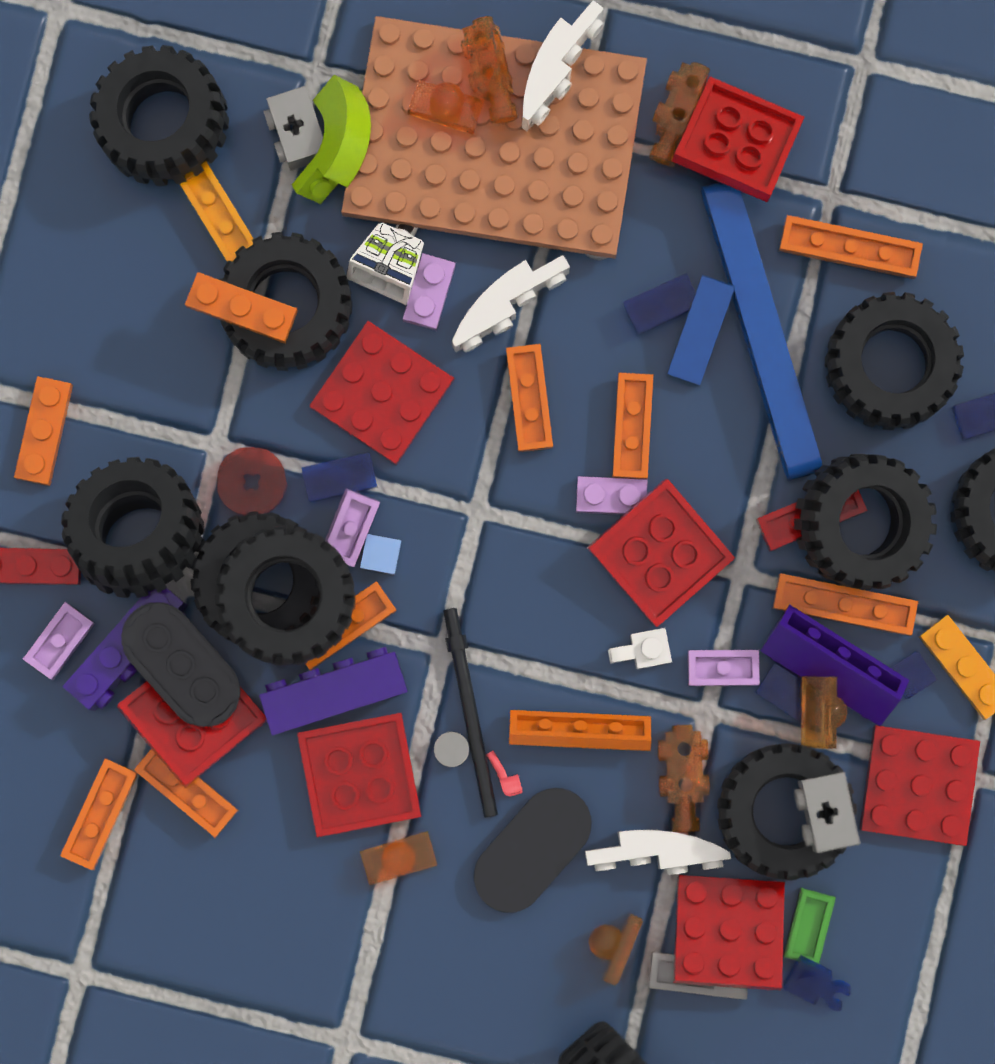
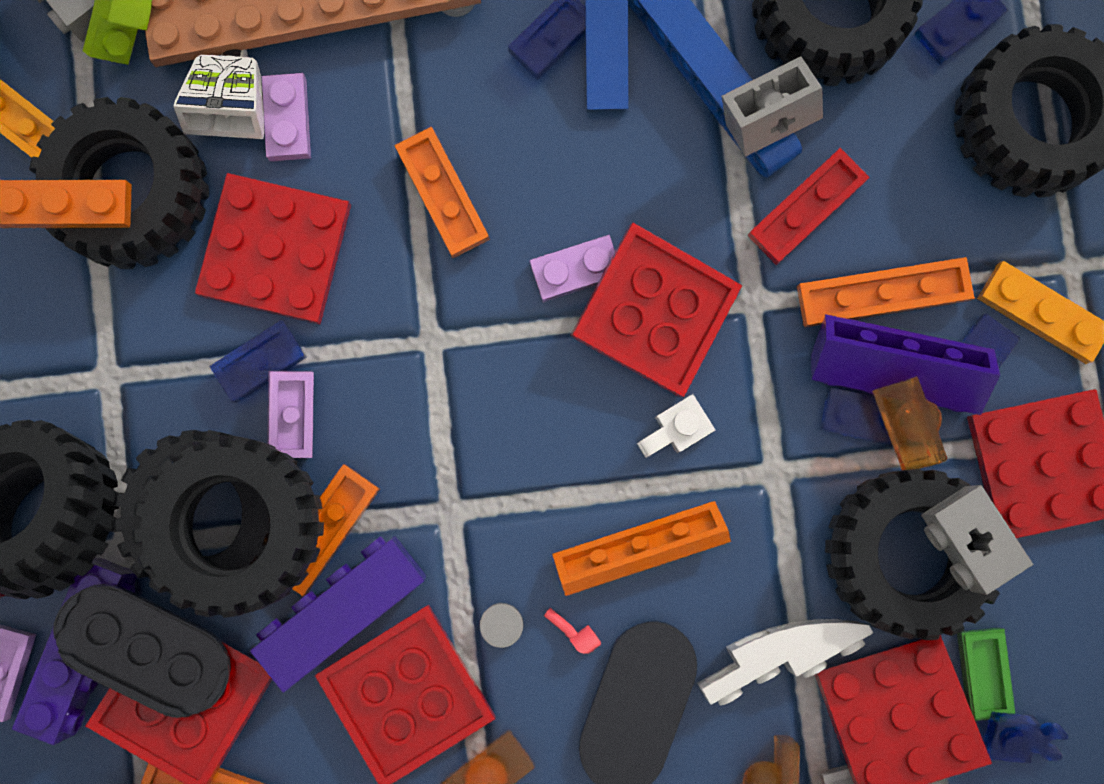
camera: 20 degrees left, 0 degrees up
(251, 461) = (150, 380): clear red plate -> none
(380, 554) = (338, 431): light blue tile -> none
(456, 644) = (463, 502): black bar -> none
(494, 307) = (365, 103): white slope -> none
(632, 426) = (570, 180): orange plate -> none
(684, 767) = (772, 548): clear orange brick -> none
(723, 668) = (776, 414): lavender plate -> none
(806, 431) = (773, 106): none -> light grey brick
(908, 527) = (926, 180): black tyre -> none

